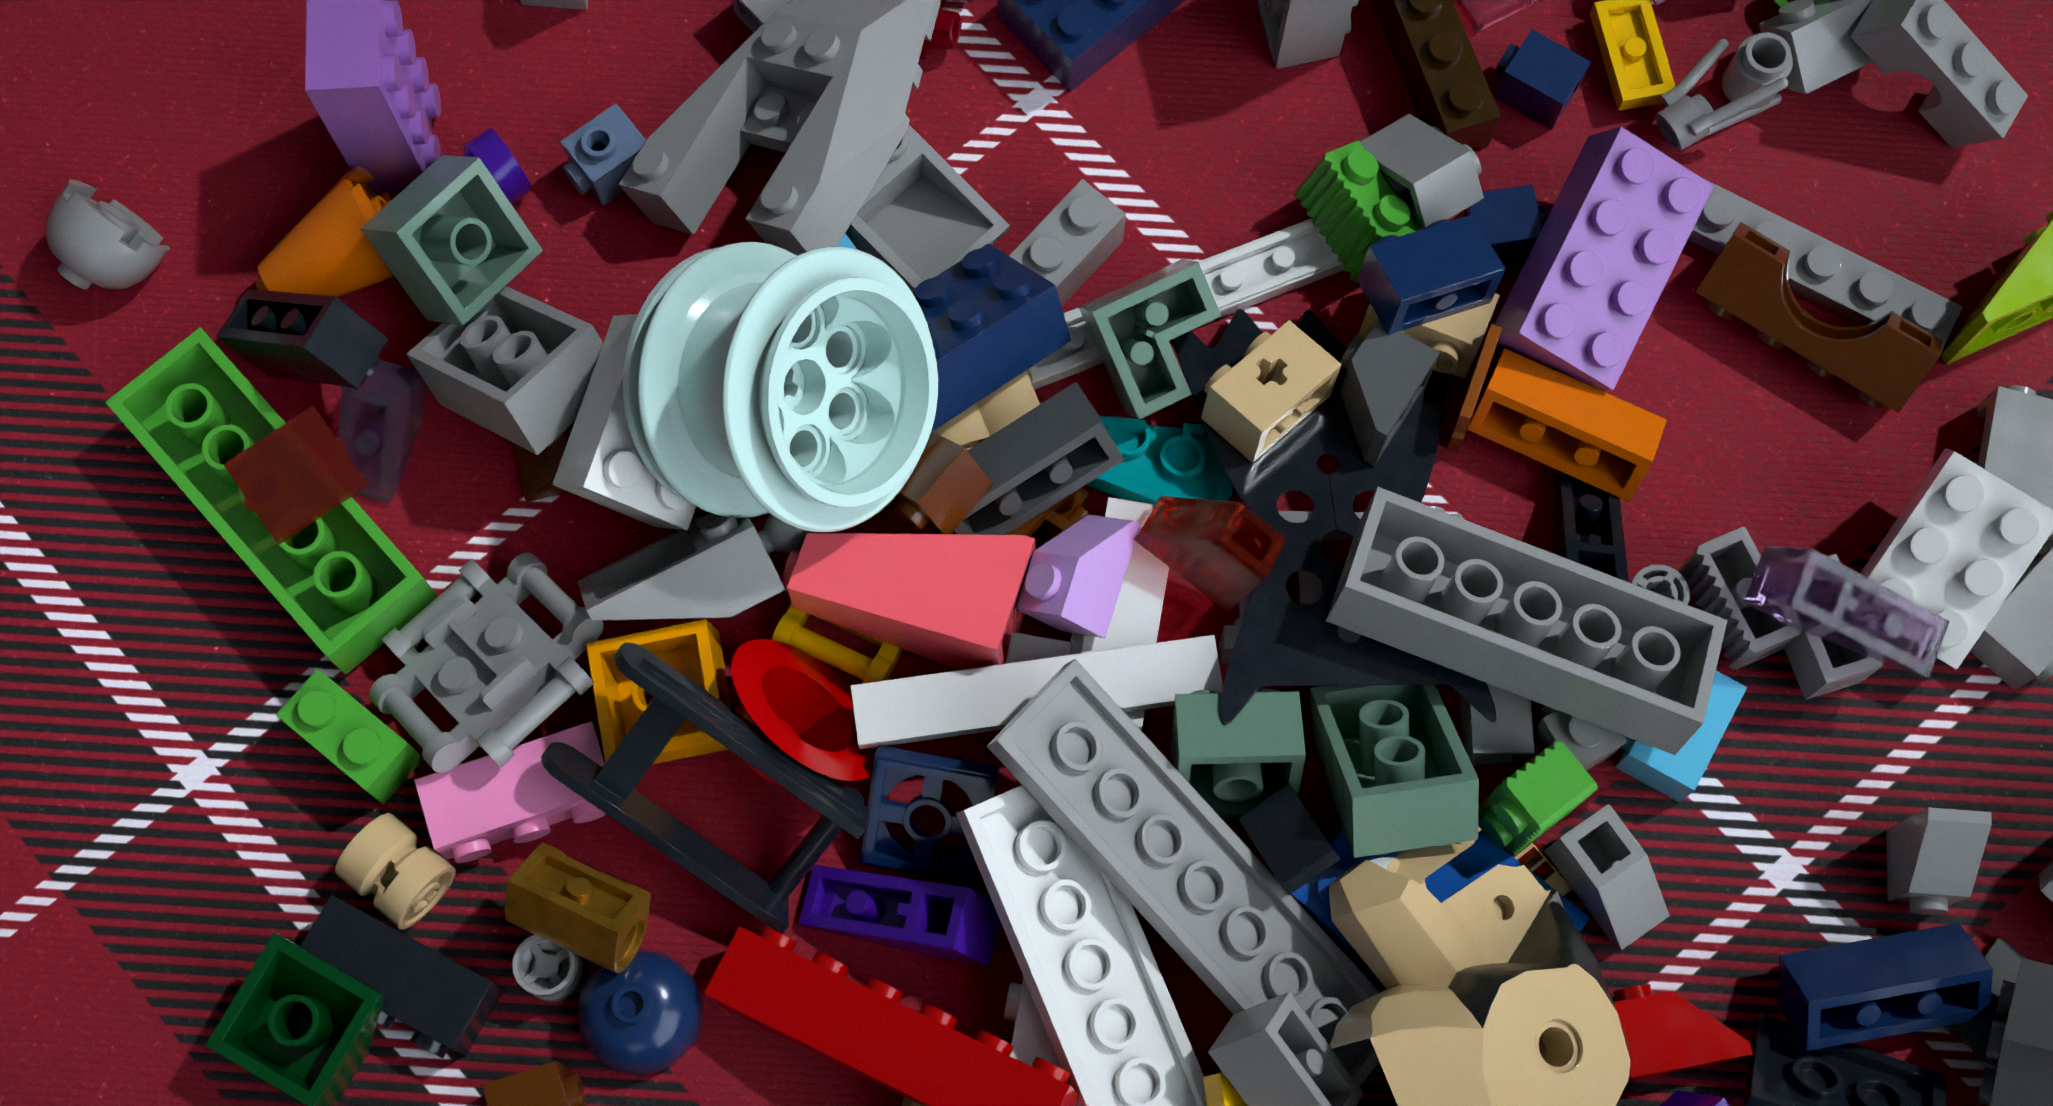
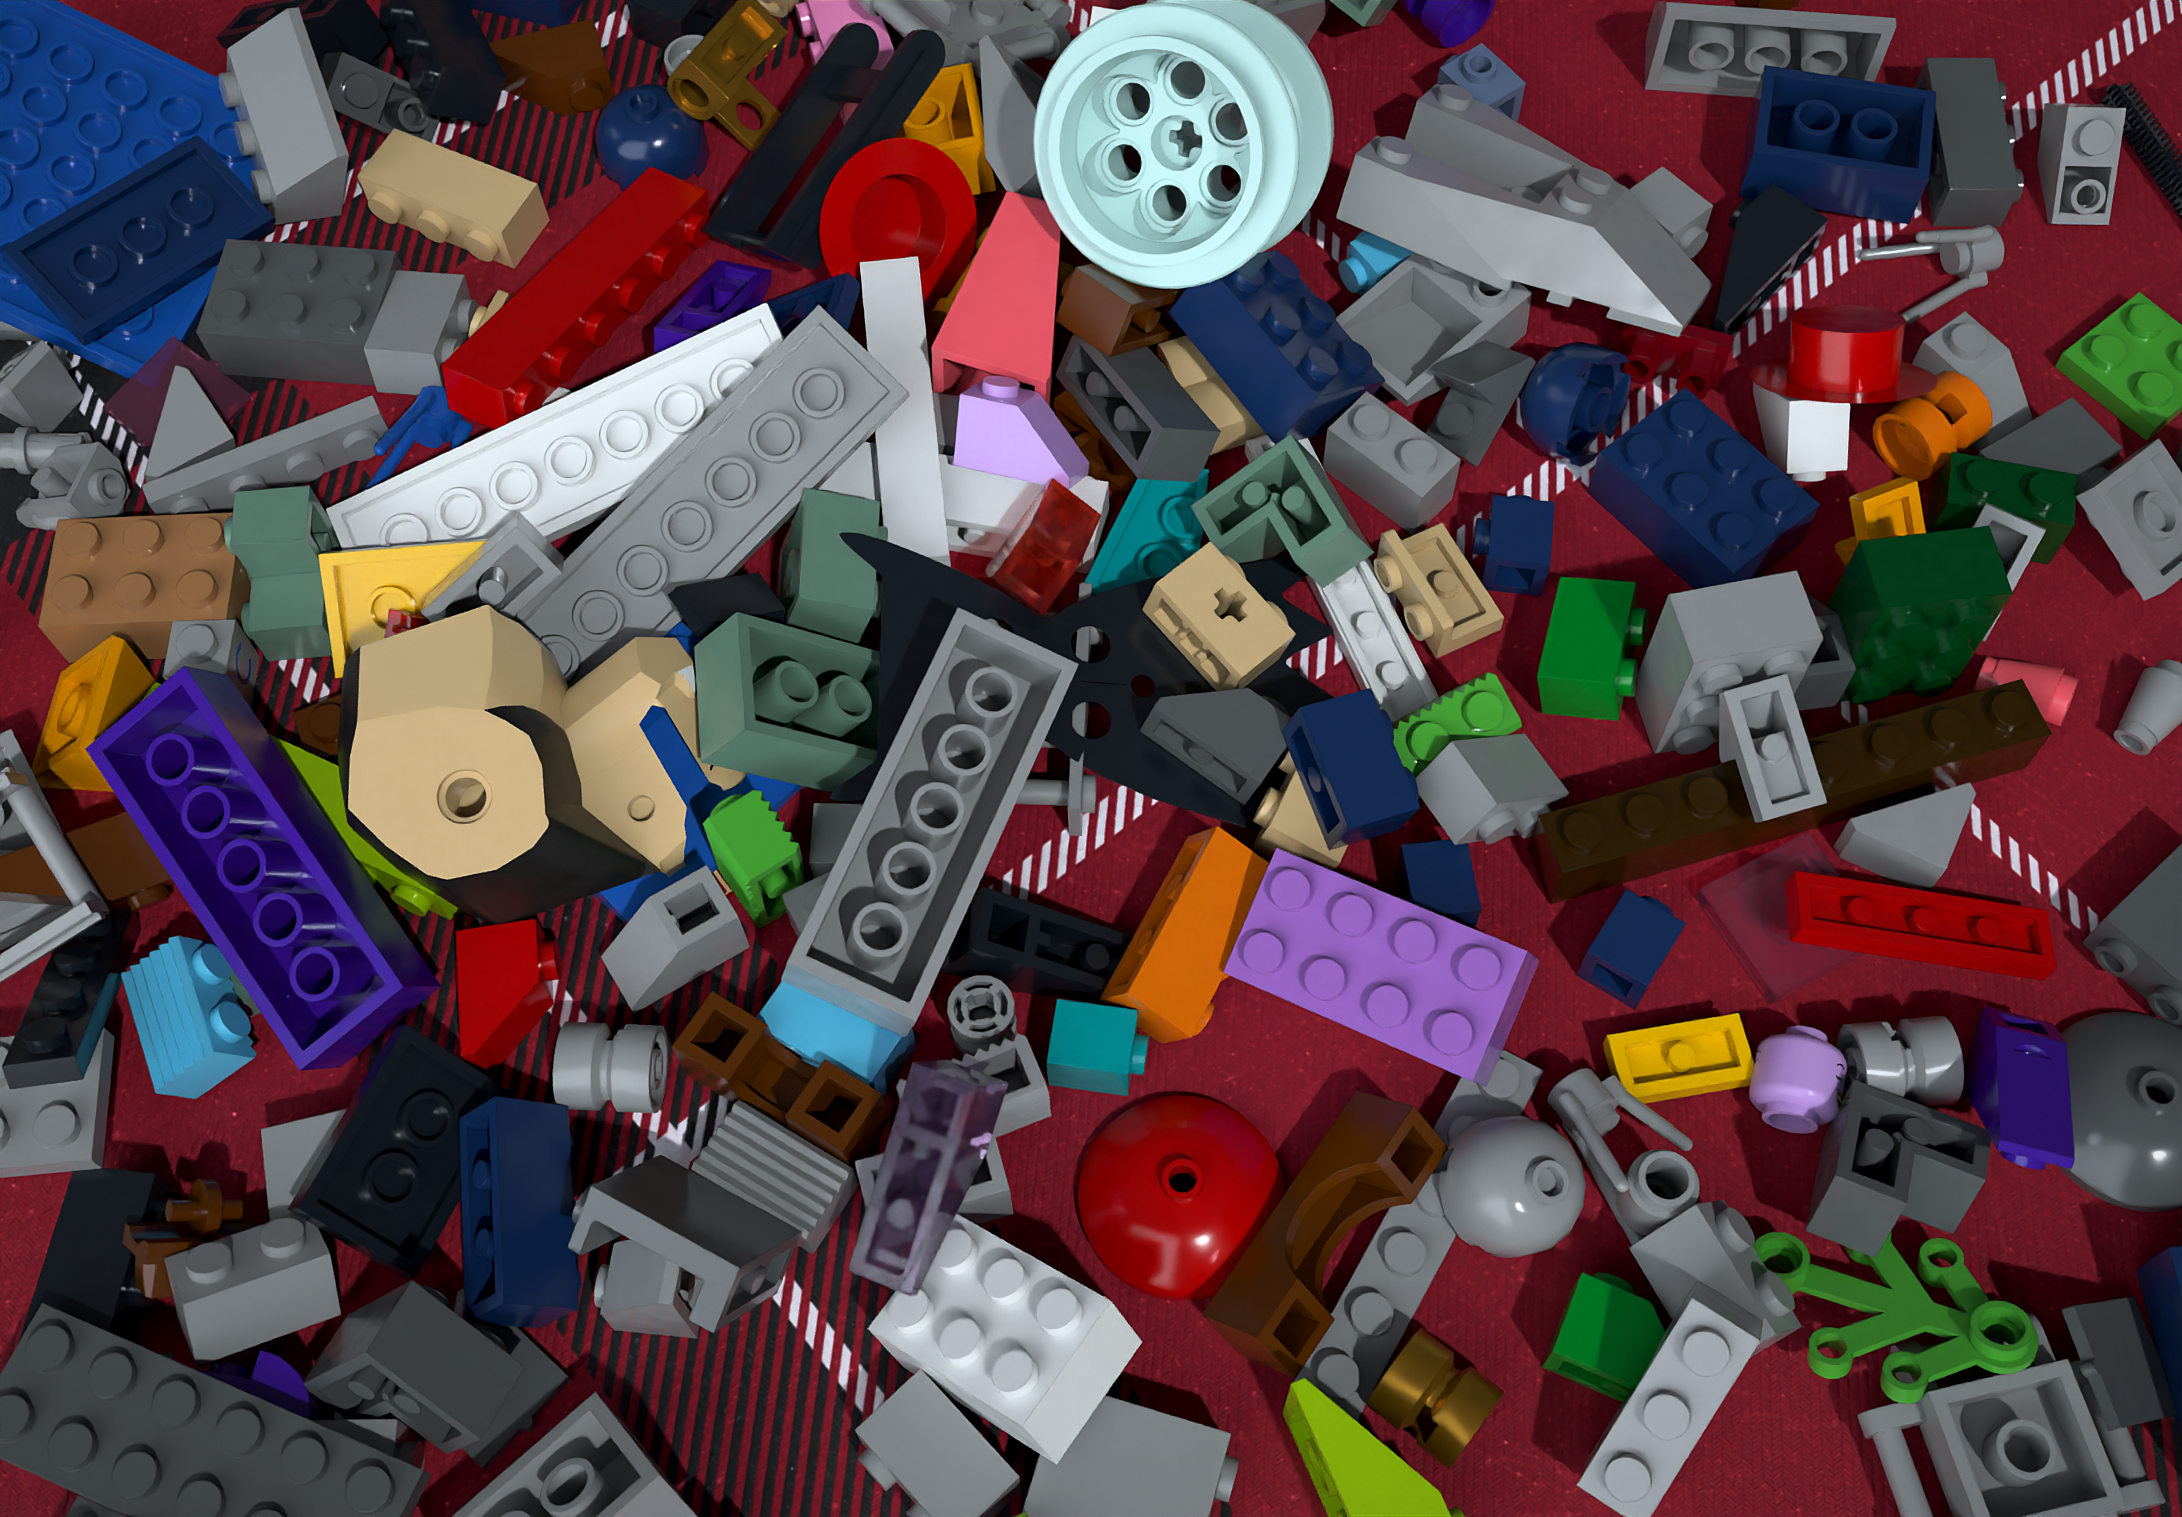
camera: 95 degrees right, 10 degrees down
(994, 89) = (1573, 399): none -> dark blue cylinder
(999, 167) = (1482, 391): none -> dark grey slope
(1146, 146) = (1515, 544): none -> dark blue brick
(1197, 216) = (1437, 589): none -> tan bracket
(1262, 86) = (1590, 648): none -> green brick
(1474, 387) = (1198, 813): dark orange piece -> none
(1672, 506) = (1095, 1048): none -> teal brick
(1728, 796) = (747, 1064): none -> reddish brown arch
(1736, 921) = (603, 1067): none -> light grey wheel
(1762, 465) = (1169, 1239): none -> red dish
(1766, 172) = (1512, 1186): none -> light grey cylinder
(1818, 770) = (777, 1173): none -> light grey brick
(1872, 118) = (1604, 1336): none -> green slope
(1909, 817) = (694, 1225): none -> dark grey panel
(1940, 241) = (1434, 1398): none -> pearl gold wheel

